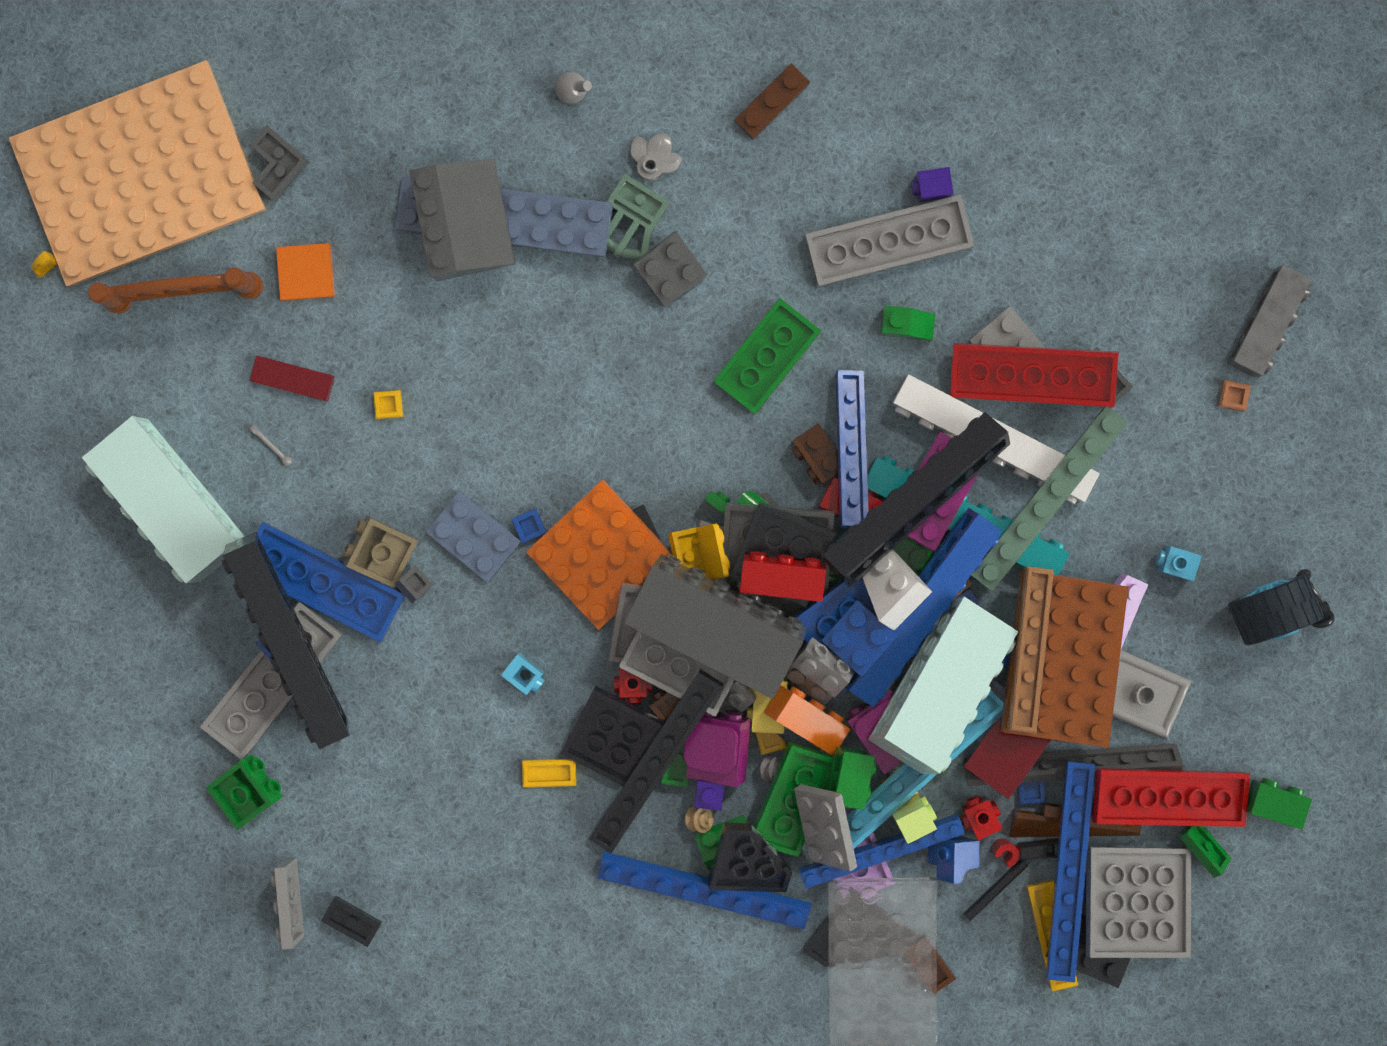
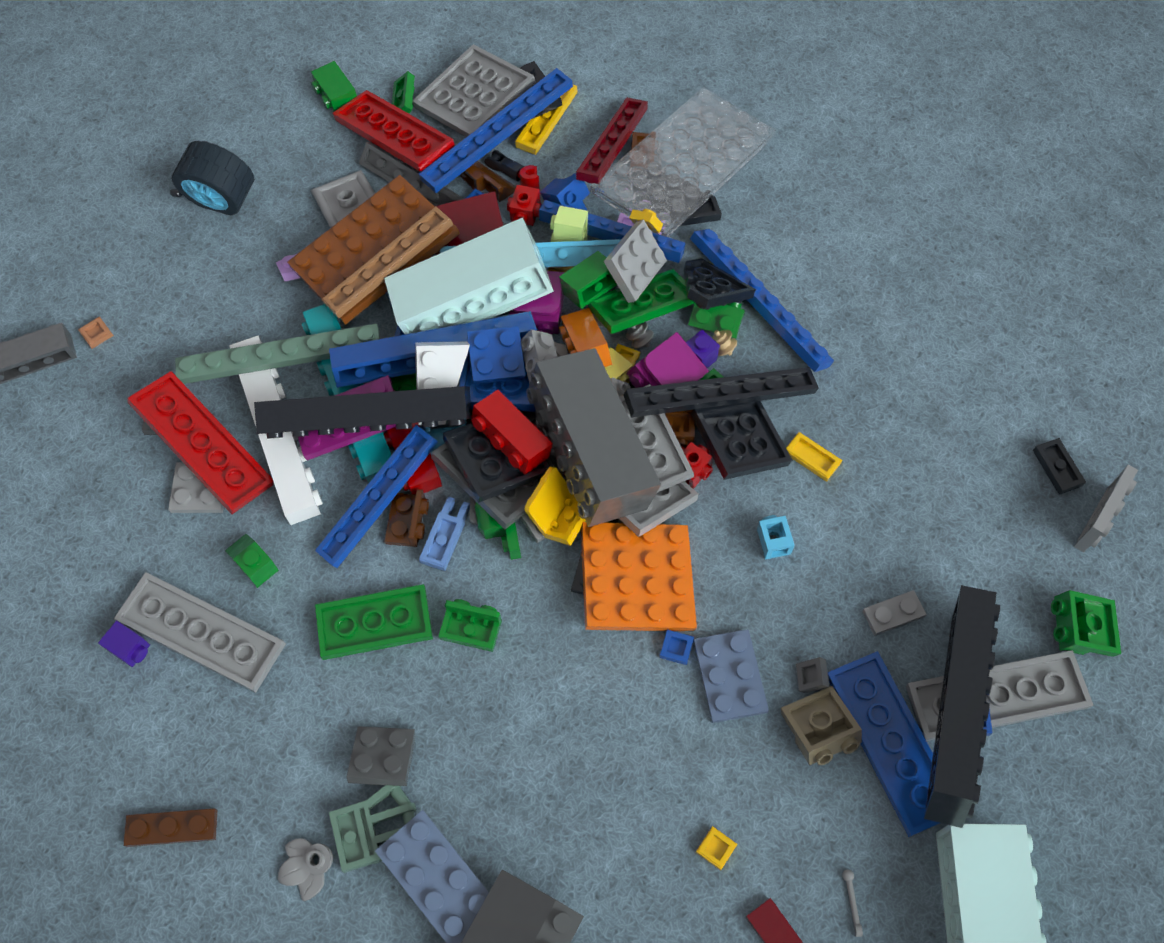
camera: 135 degrees left, 25 degrees down
(391, 686) = (894, 612): none -> light grey plate
(692, 412) = (470, 625): none -> green bracket
(776, 465) = (444, 535): none -> medium blue hinge
(852, 879) = (649, 217): none -> yellow plate
(961, 949) = (611, 141): none -> dark red plate
(995, 890) = (556, 165): black bar -> none
(1178, 563) = (242, 258): medium azure brick -> none

